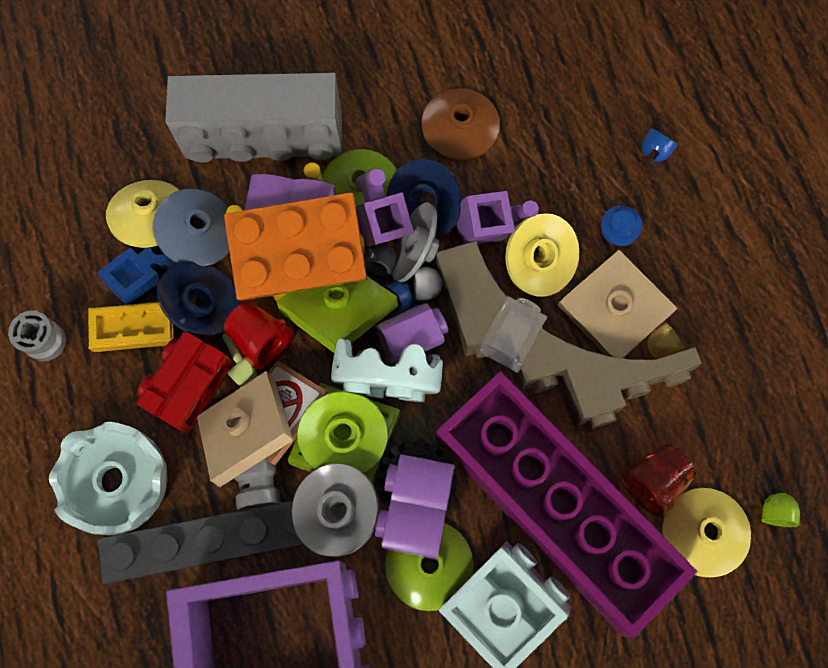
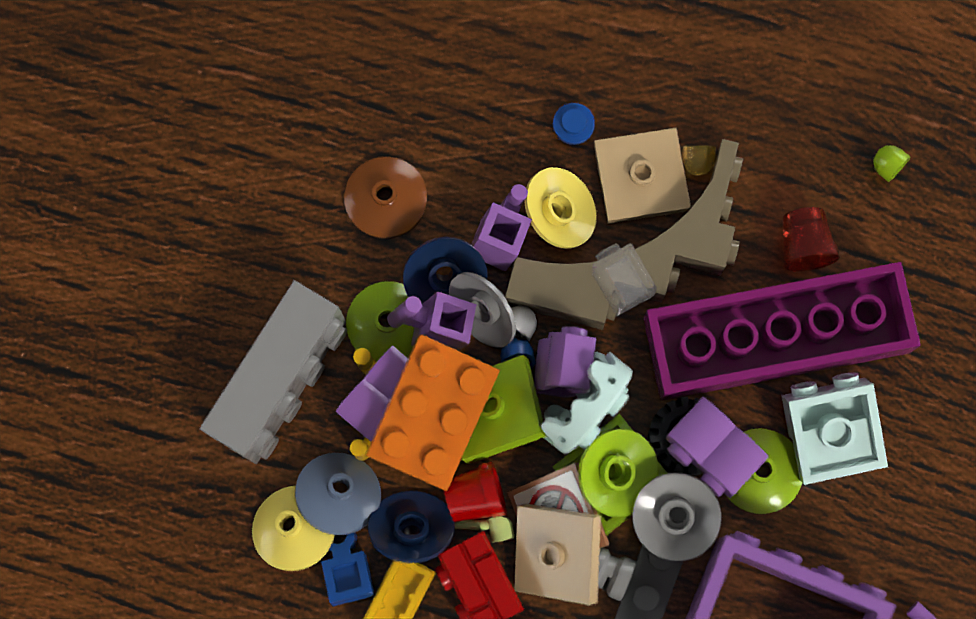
camera: 55 degrees left, 5 degrees up
(380, 260) = (478, 347): dark grey hinge -> none
(659, 142) = (520, 41): blue hinge -> none
(685, 527) = (855, 244): light yellow dish -> none

